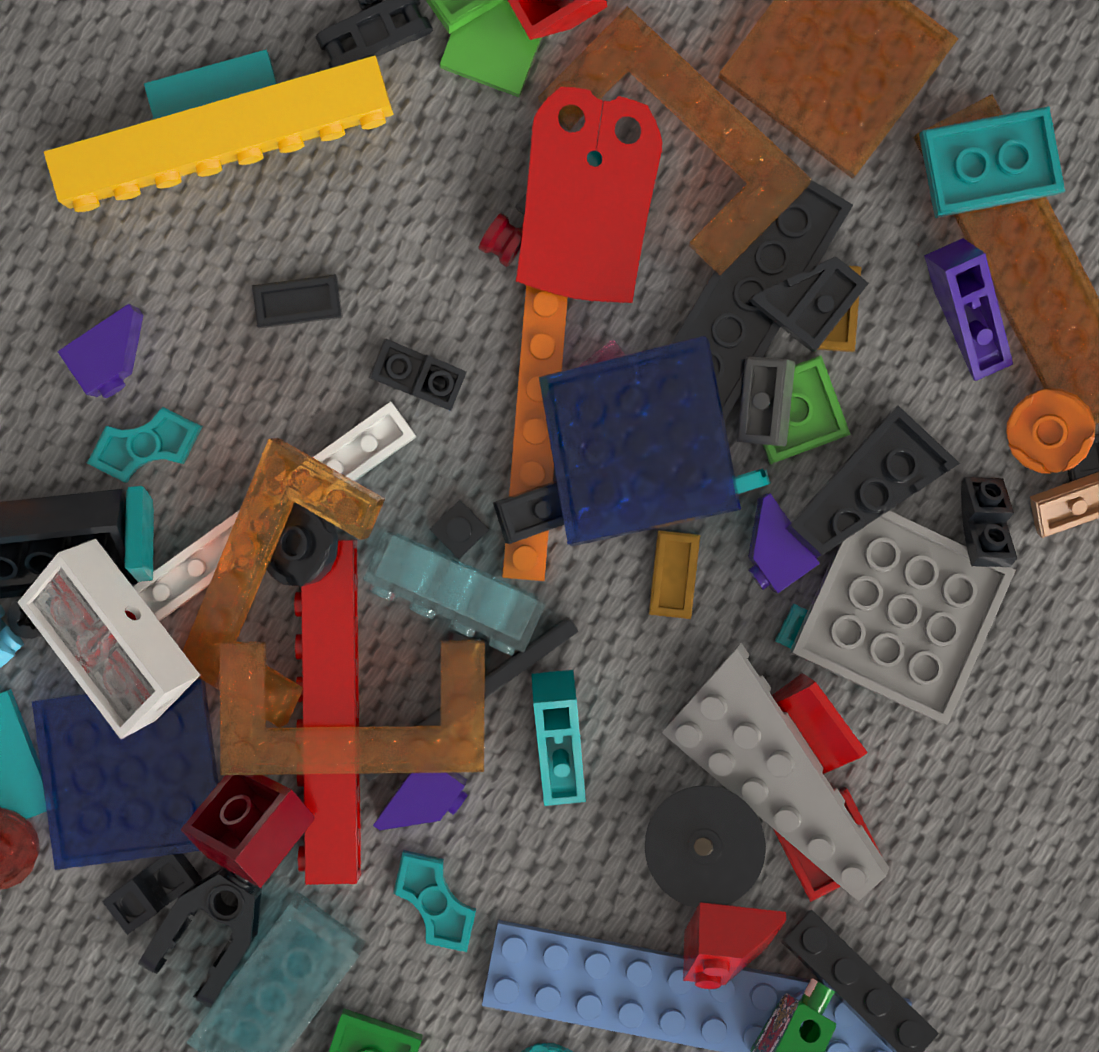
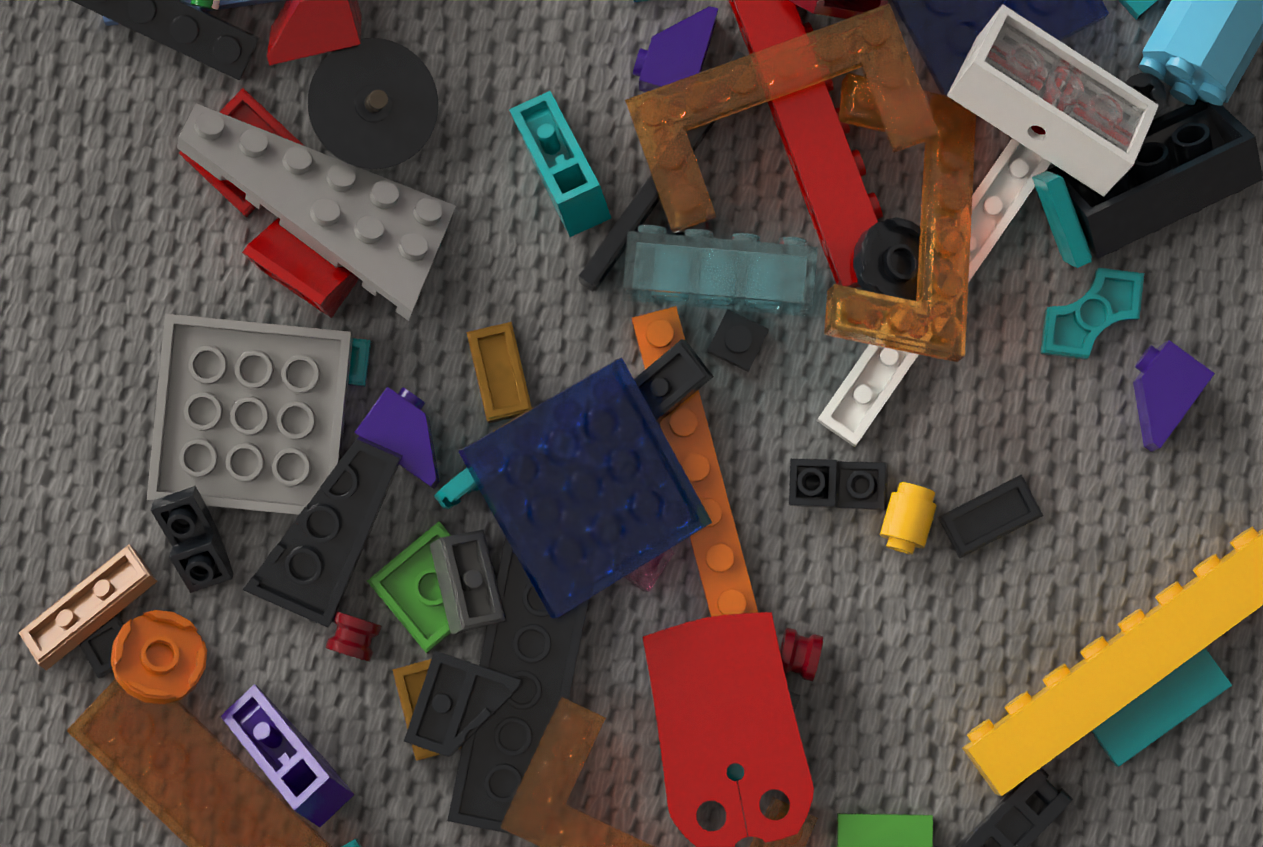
camera: 155 degrees right, 5 degrees down
(368, 323) = (908, 518): none -> yellow brick
(878, 389) = (353, 636): none -> dark red wheel

